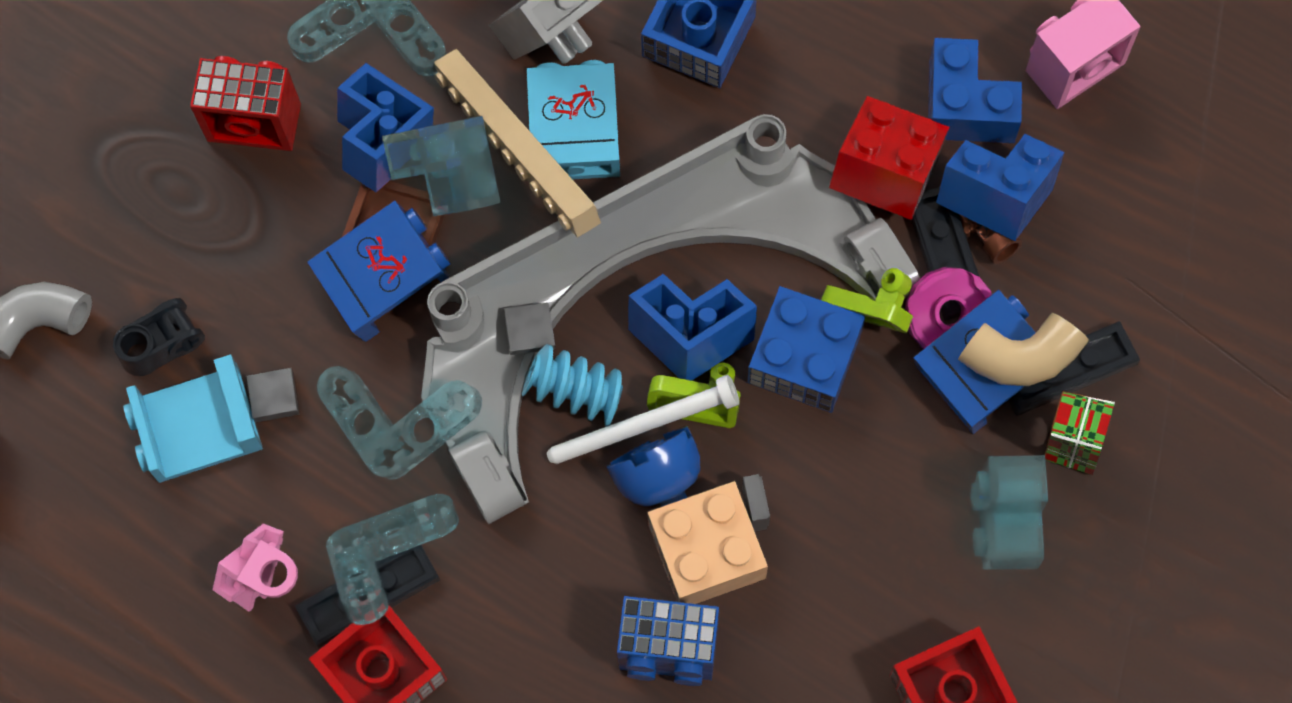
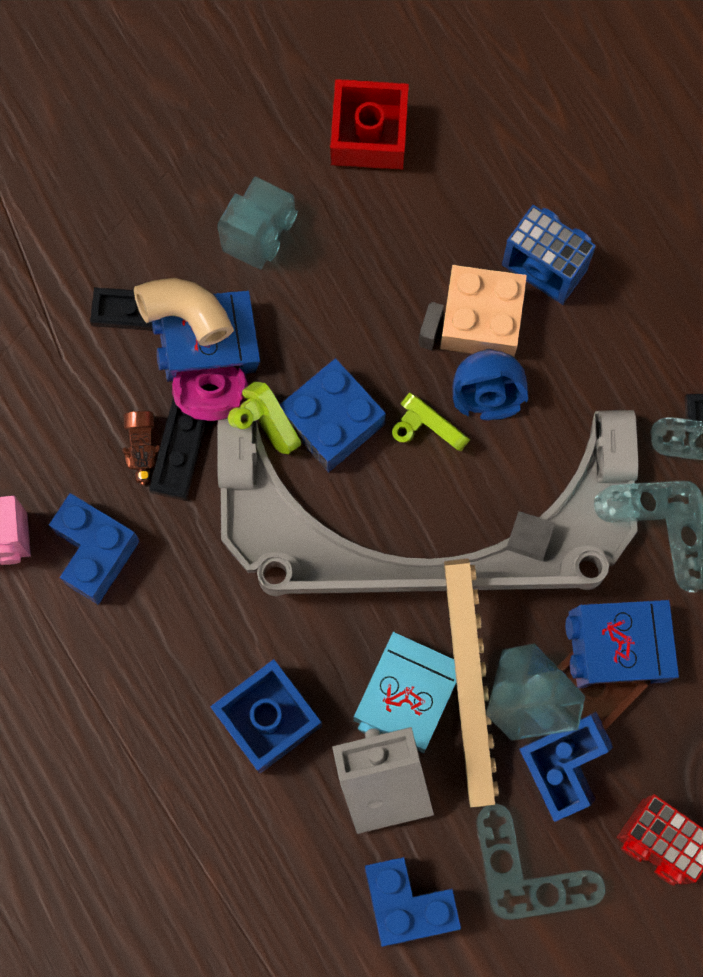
camera: 155 degrees left, 5 degrees up
(574, 383) = (519, 477): medium azure piece -> none
(690, 333) = (418, 467): blue brick -> none
(723, 393) = (416, 399): white bar -> none
(888, 157) = (184, 523): red brick -> none
(1000, 190) = (113, 447): blue brick -> none
(1078, 432) = (179, 246): piece -> none

